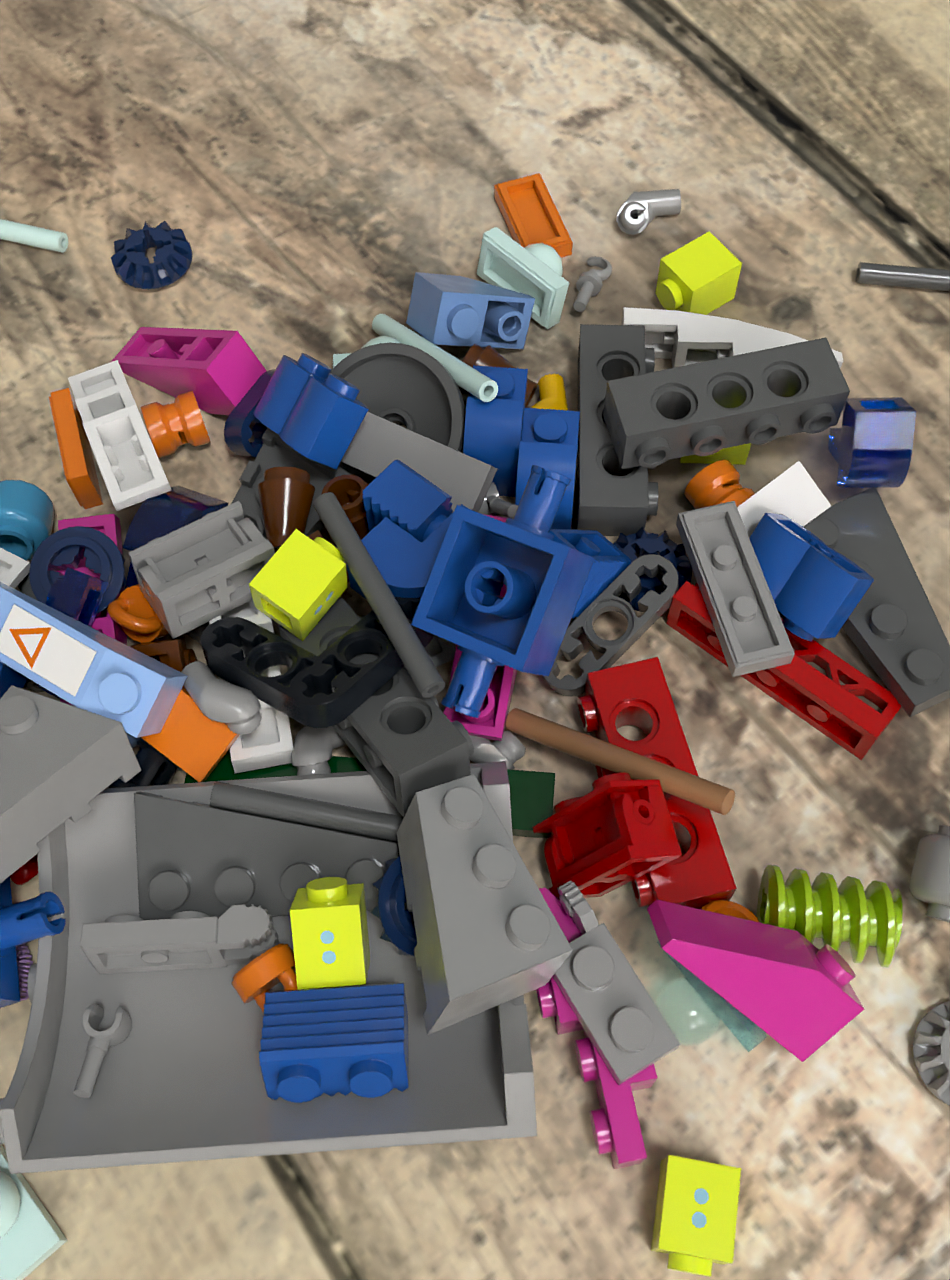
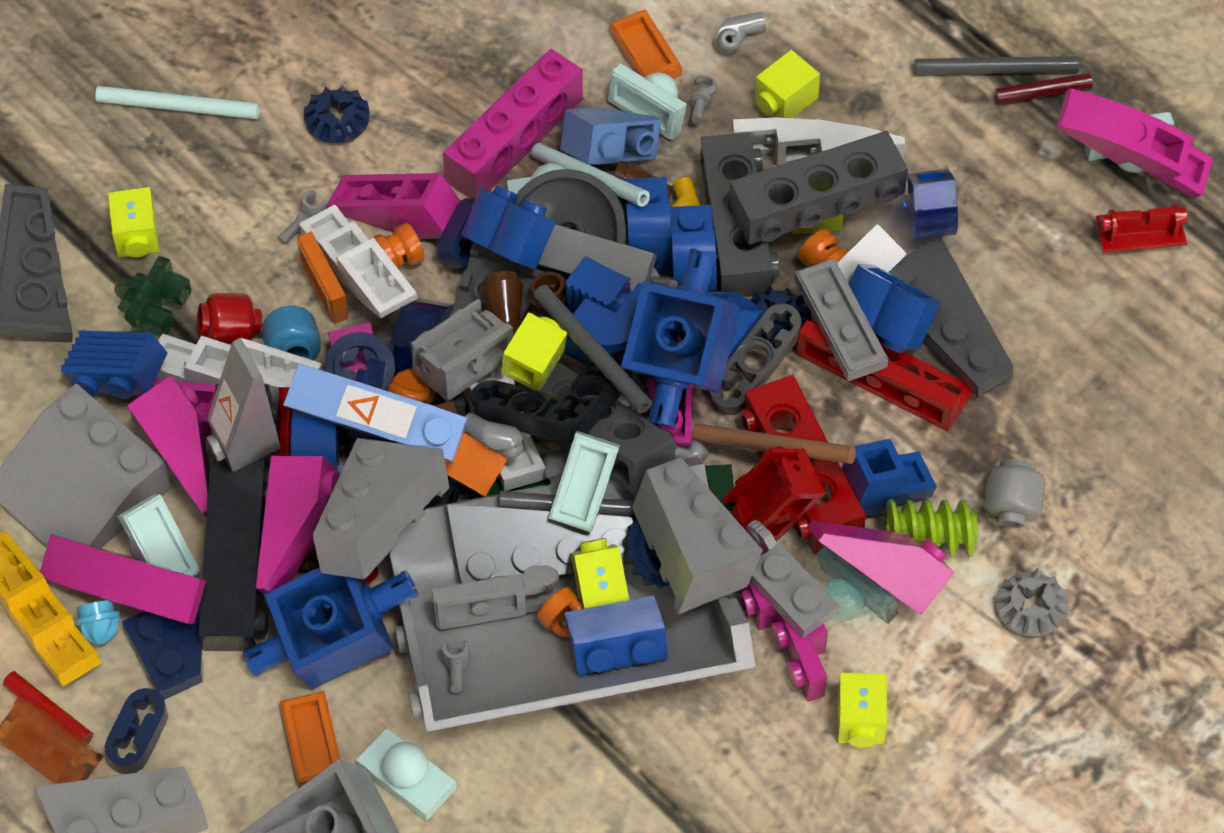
camera: 10 degrees left, 5 degrees down
(88, 357) = (307, 211): none -> light grey hand
(328, 790) = (584, 481): none -> light aqua tile
(353, 285) = (513, 124): none -> dark pink brick
(775, 828) = (884, 475): none -> blue brick

